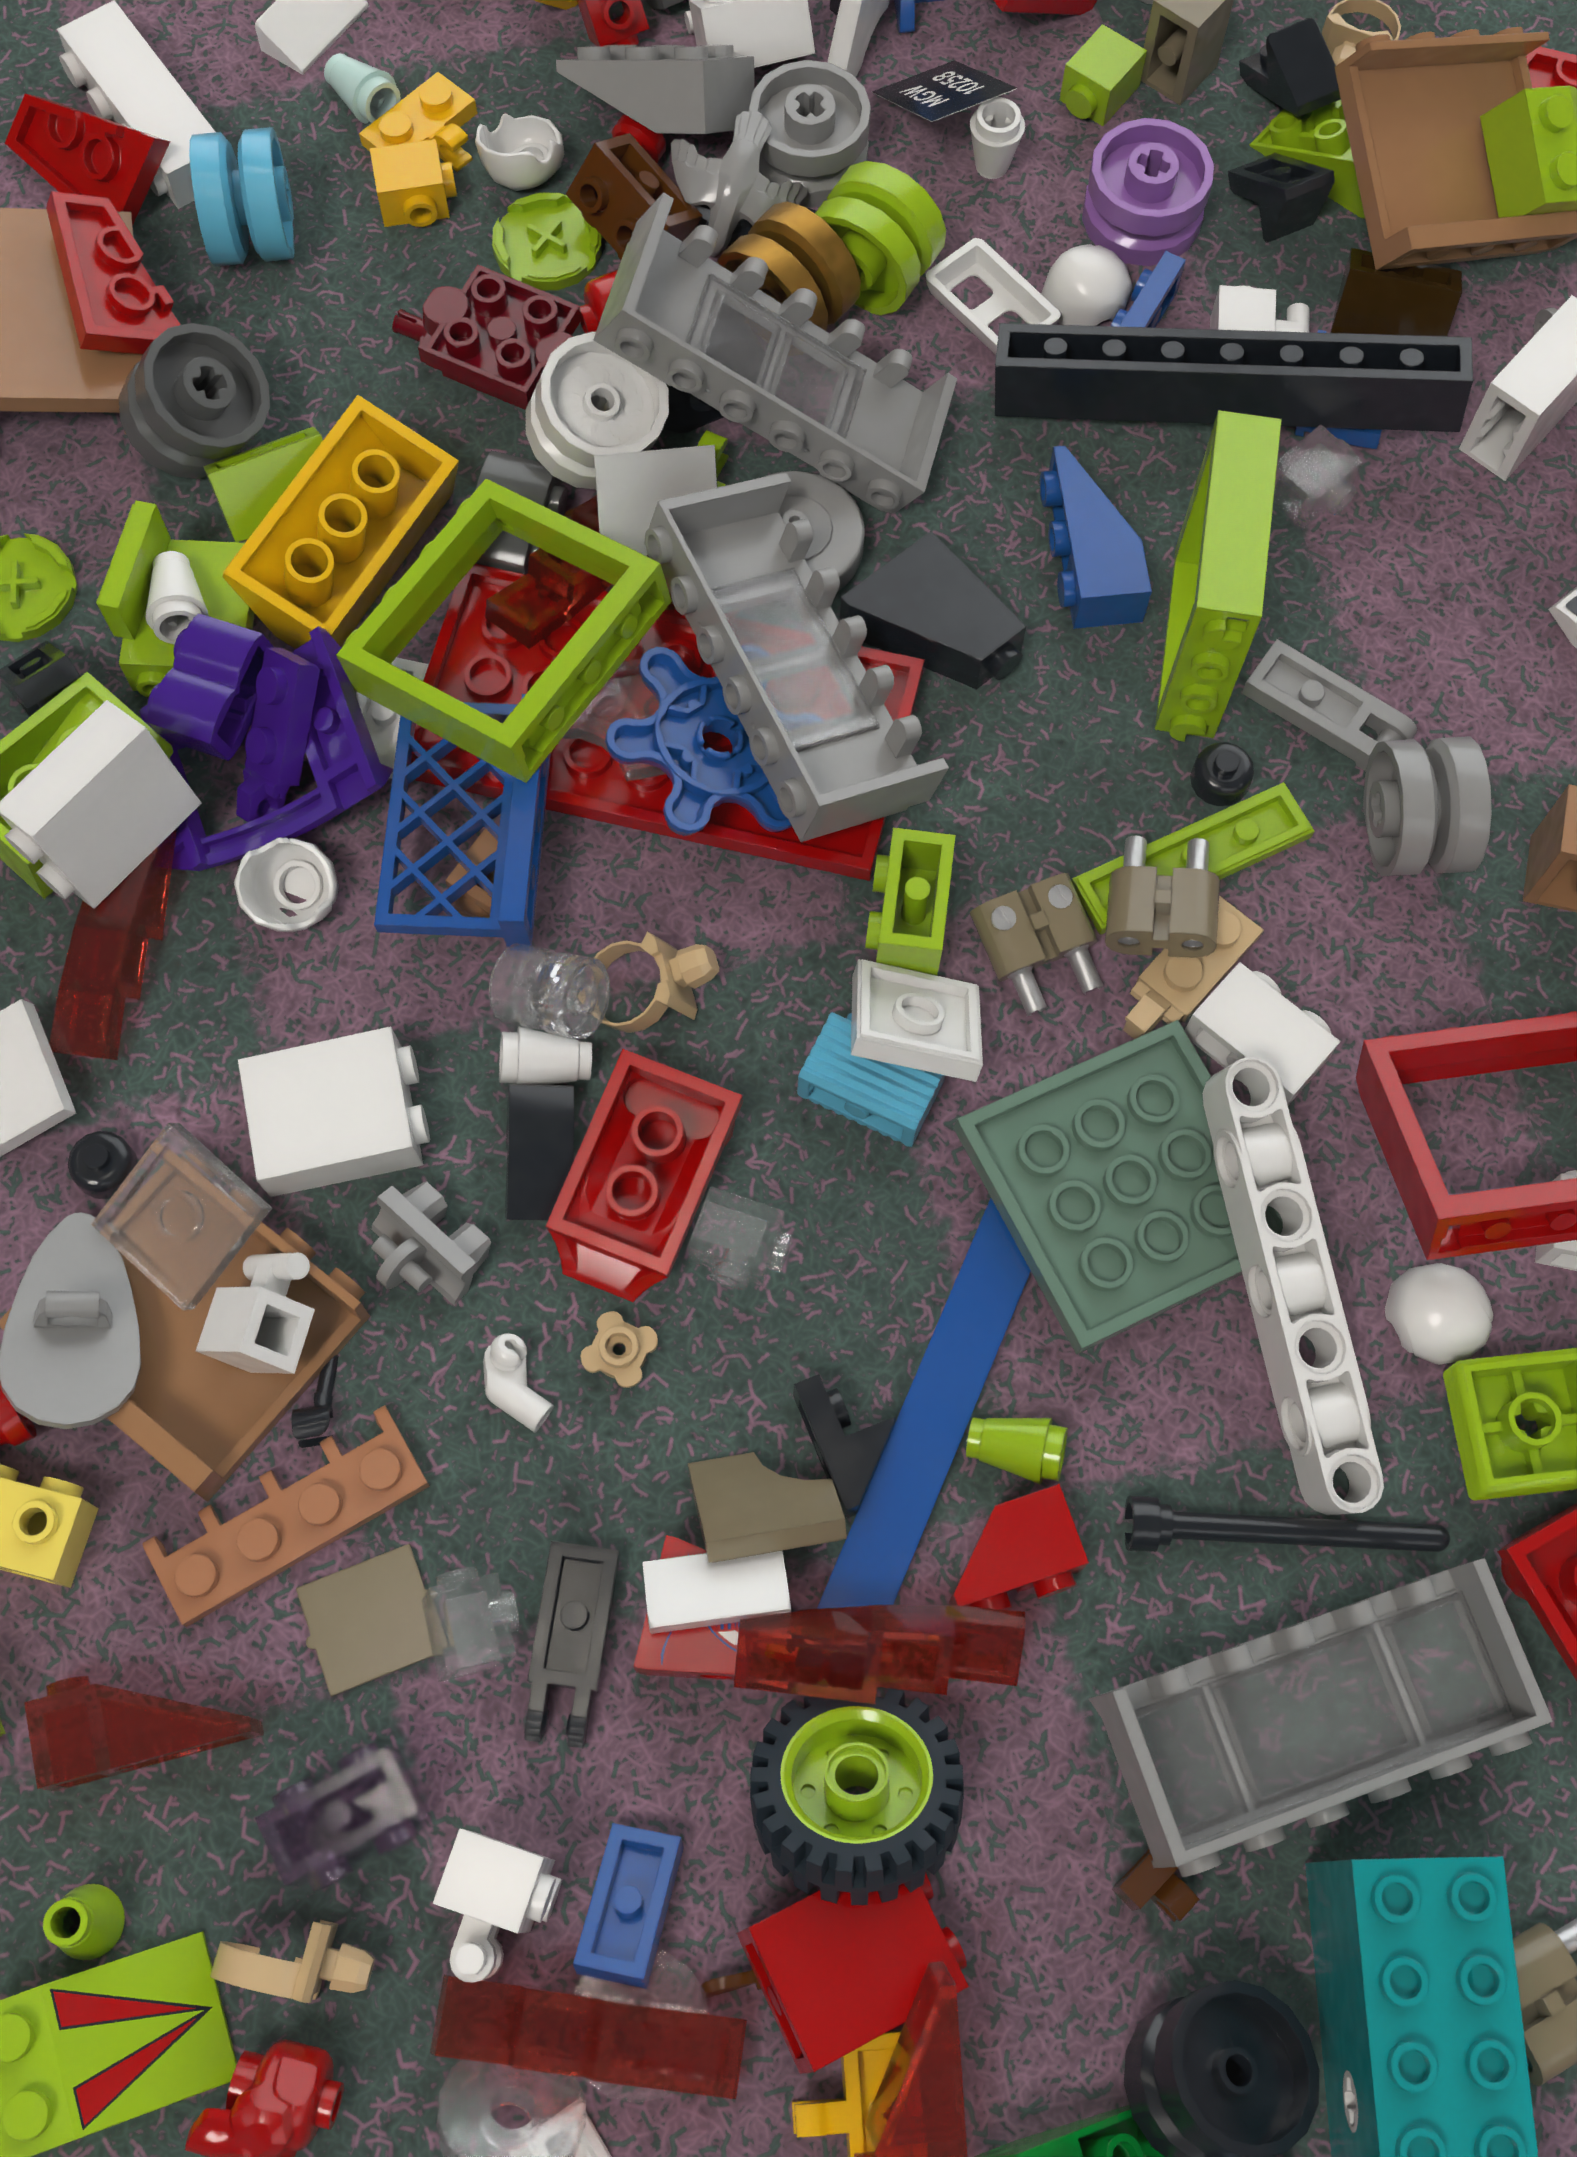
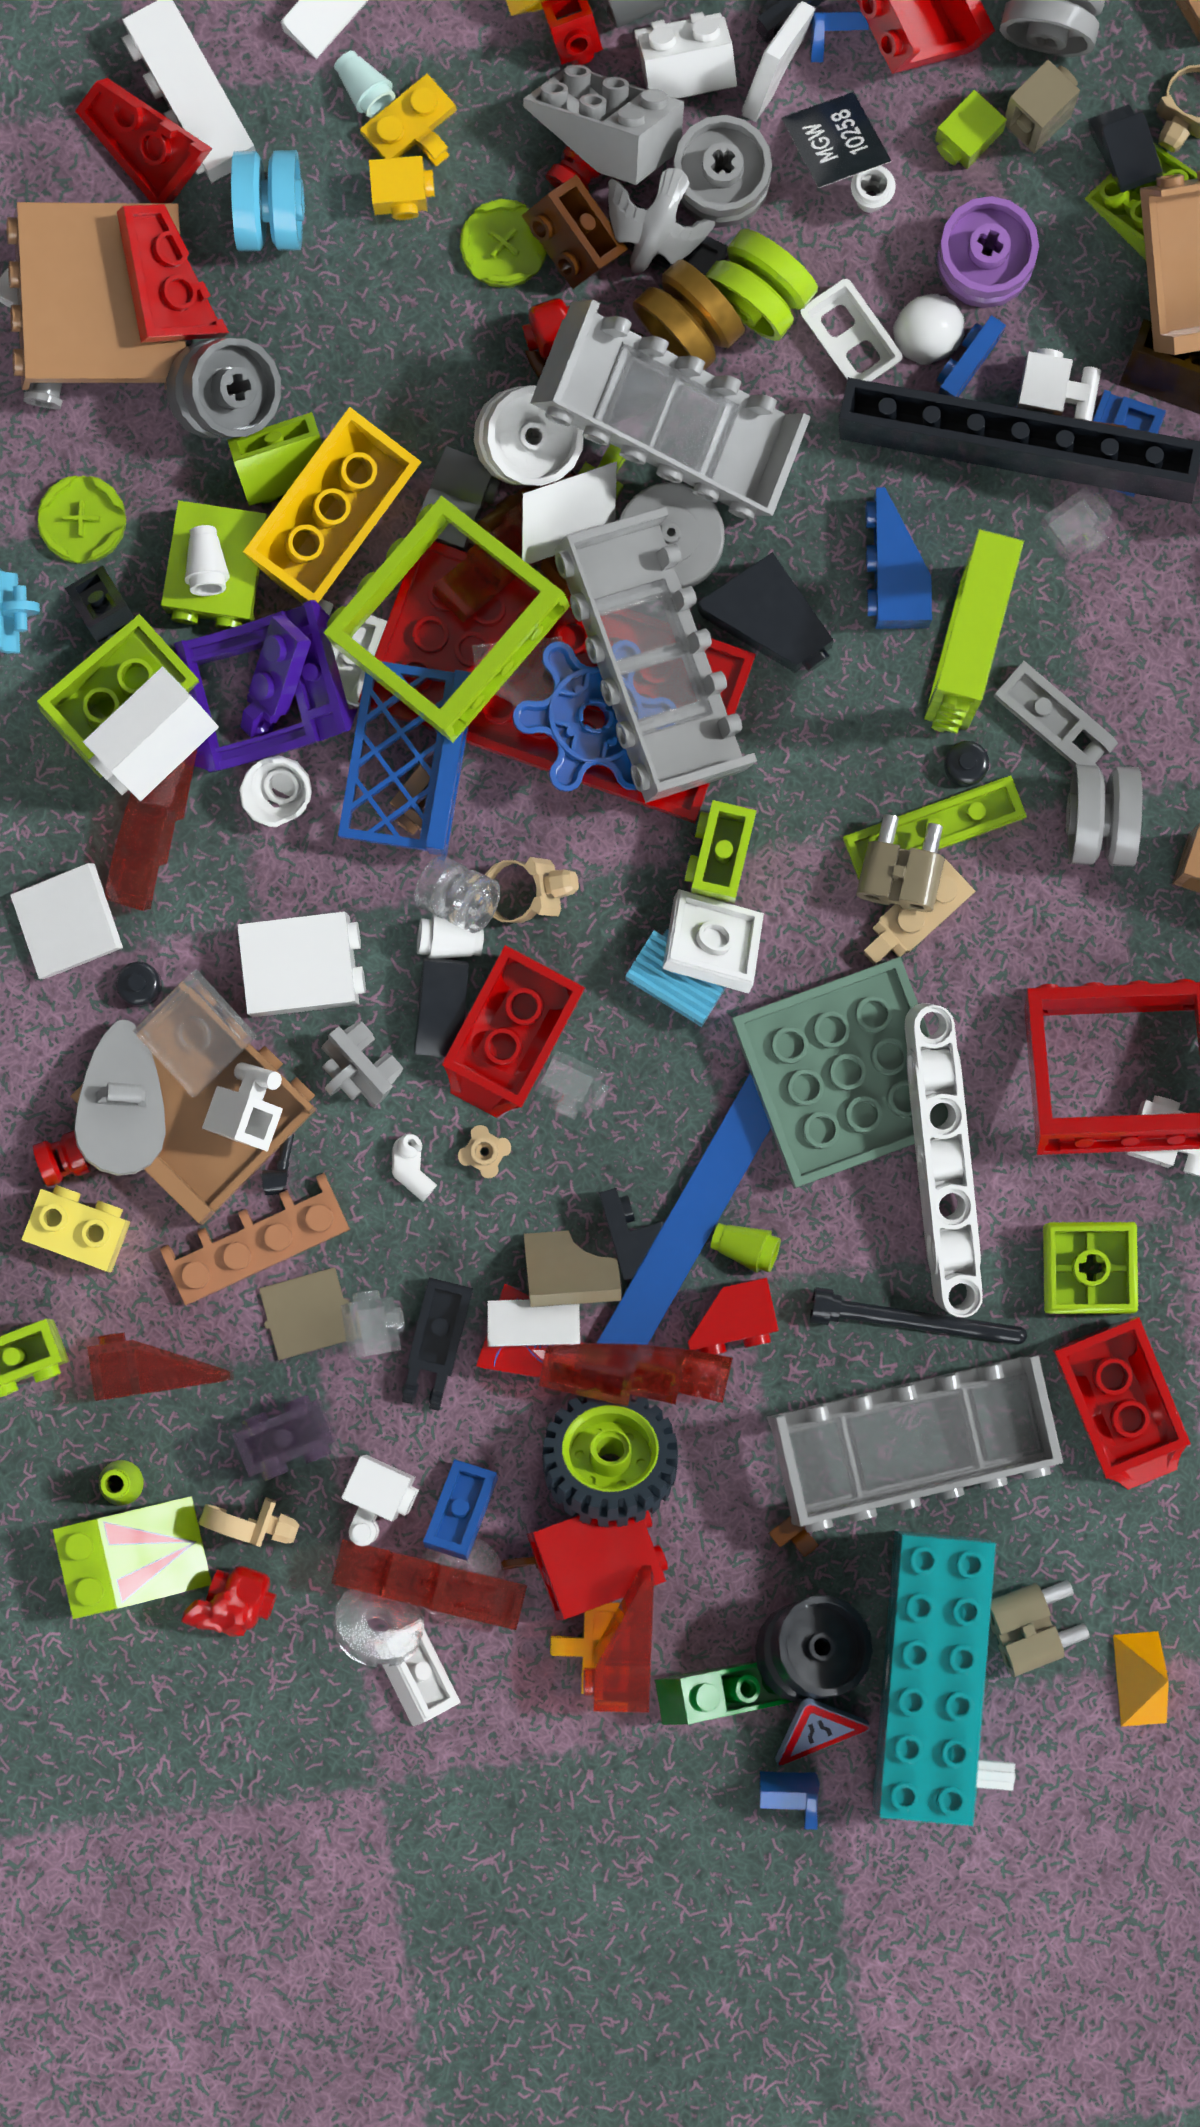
camera: 15 degrees right, 15 degrees up
(129, 574) = (176, 537): lime tile -> none
(211, 688) = (230, 639): dark purple brick -> none
(491, 333) = (459, 347): dark red piece -> none
(520, 151) = (483, 144): white hair -> none
(1034, 929) = (808, 875): dark tan piece -> none
(1254, 1020) = (959, 973): white brick -> none
(1285, 189) = (1096, 254): black slope -> none
(1439, 1313) = (1048, 1185): white hair -> none

